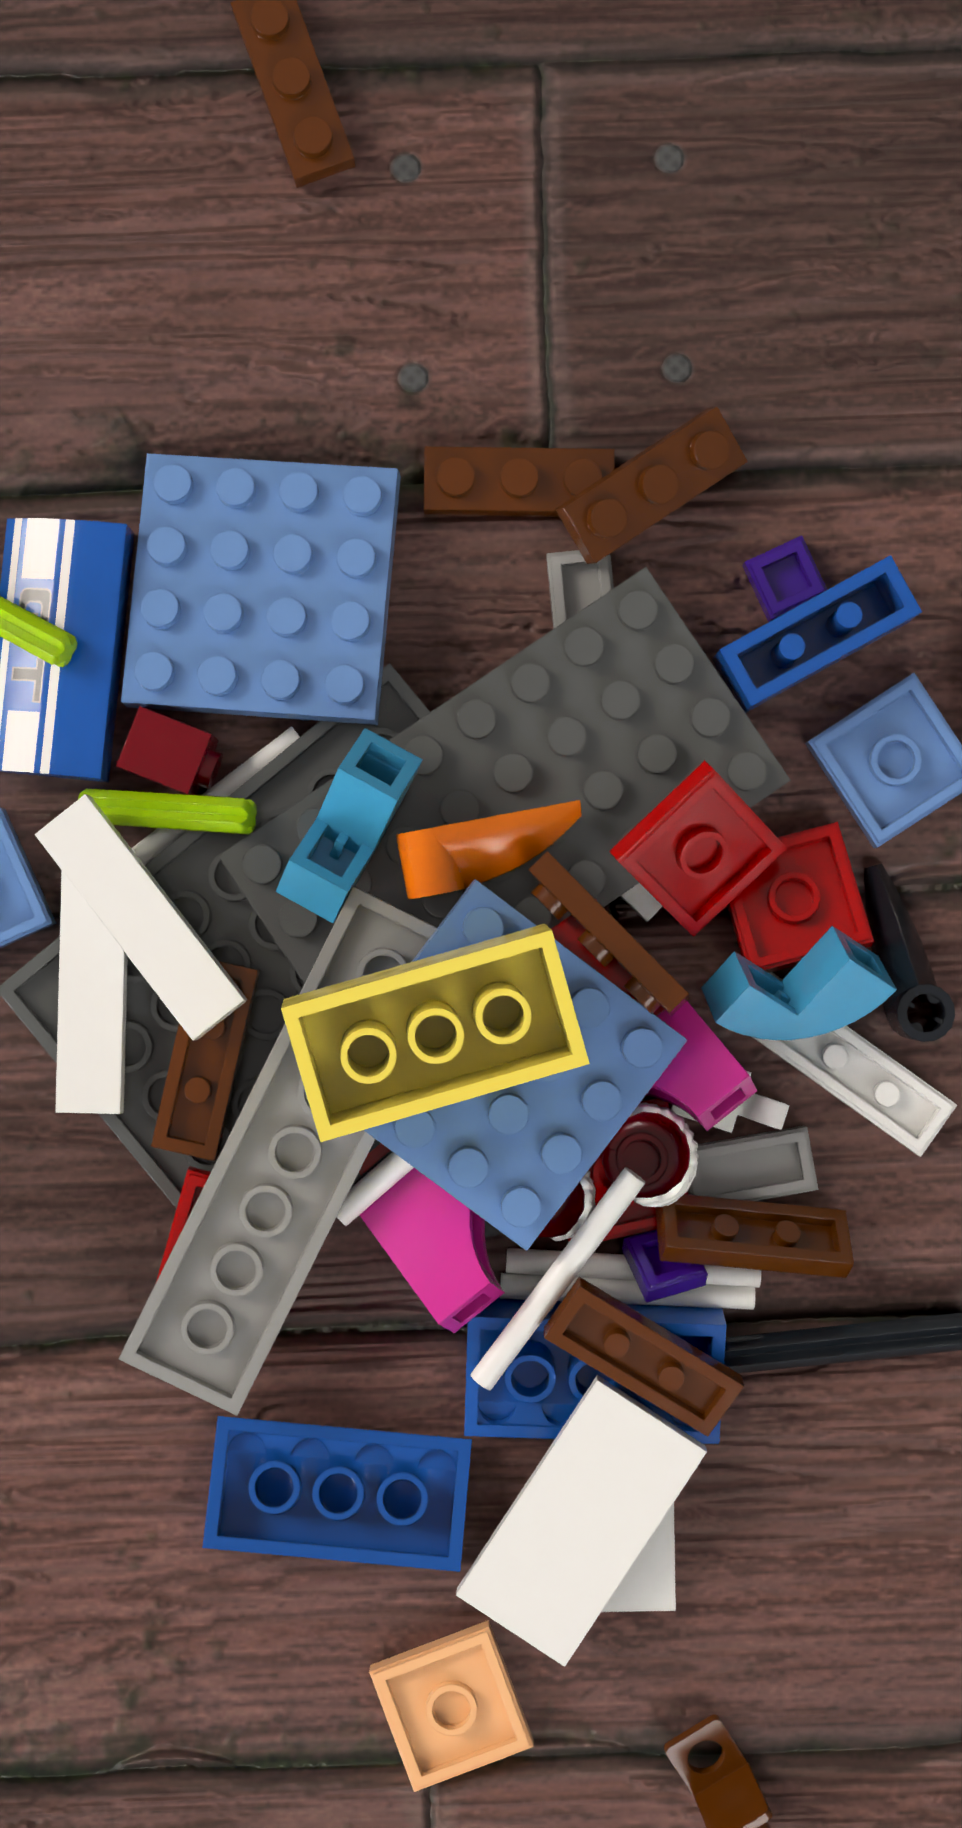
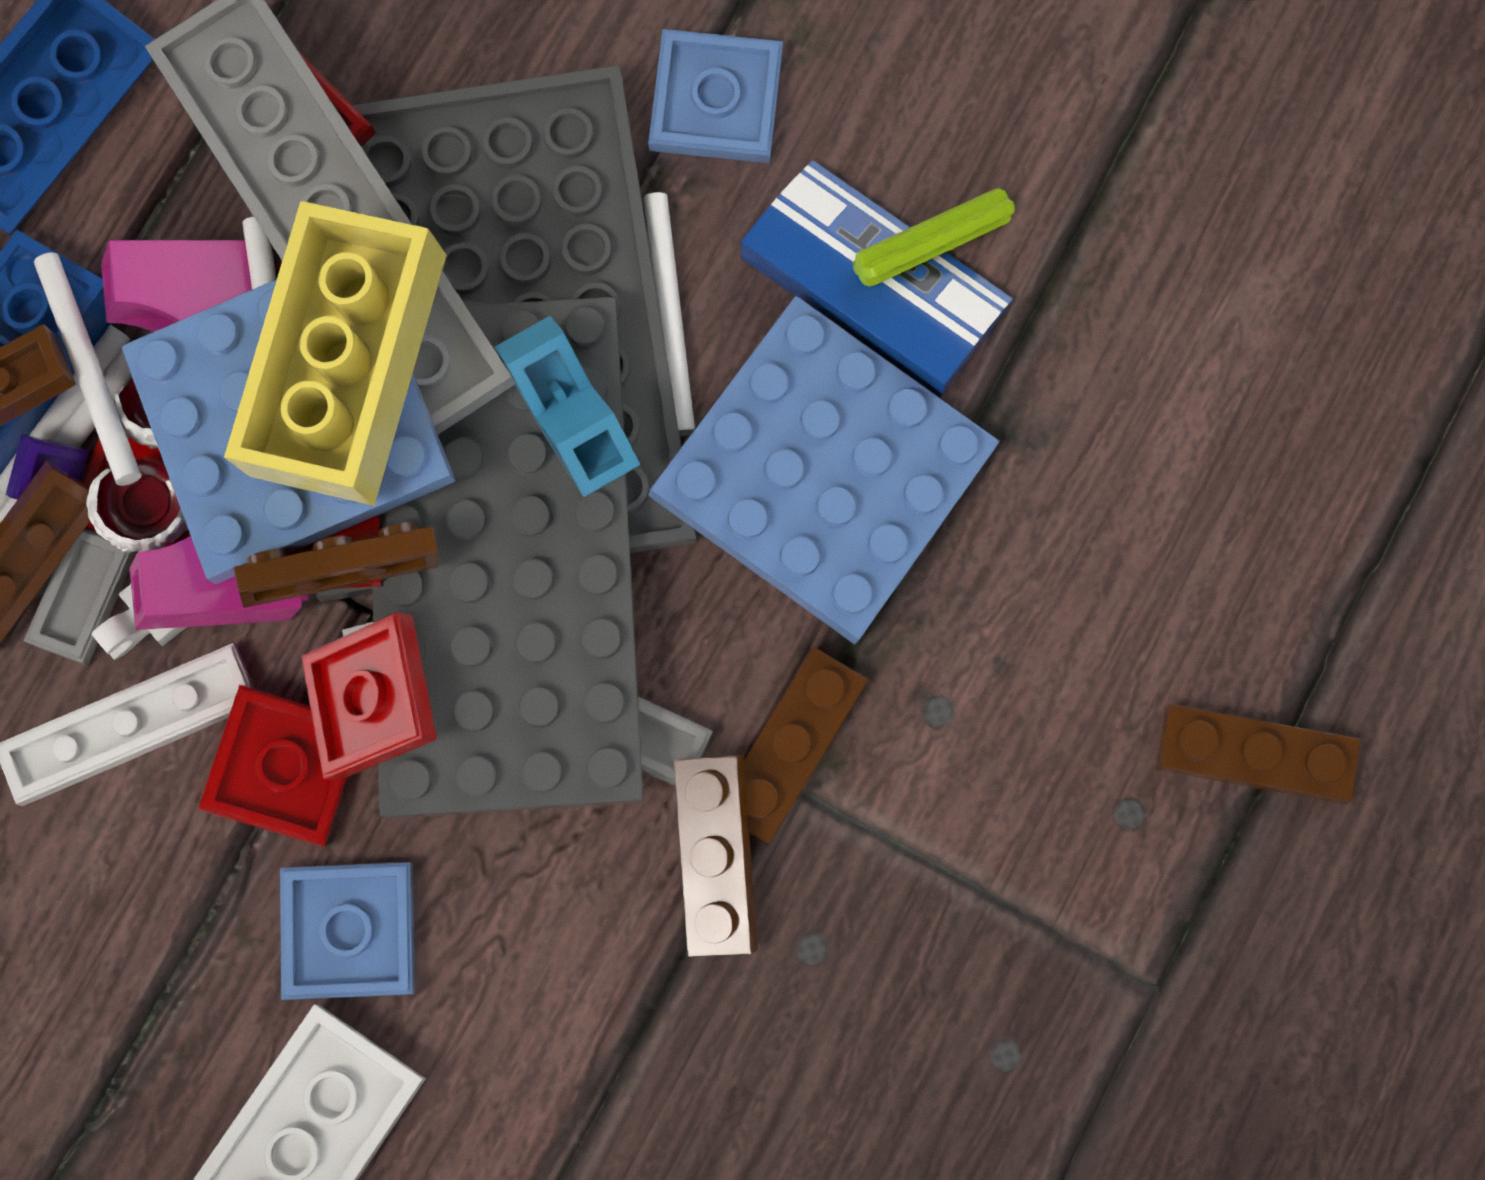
camera: 120 degrees right, 10 degrees down
(89, 1011) = (574, 140): white tile -> none
(141, 917) = (599, 201): white tile -> none
(170, 753) = (729, 313): dark red brick -> none
(176, 811) = (680, 281): lime axle -> none
(204, 1078) = (454, 192): reddish brown plate -> none
(479, 849) = (489, 485): orange piece -> none
(784, 577) = (565, 930): dark purple tile -> none
(816, 634) = (493, 916): blue brick -> none
(821, 994) = (179, 731): dark azure brick -> none
(904, 960) = (166, 831): black piece -> none

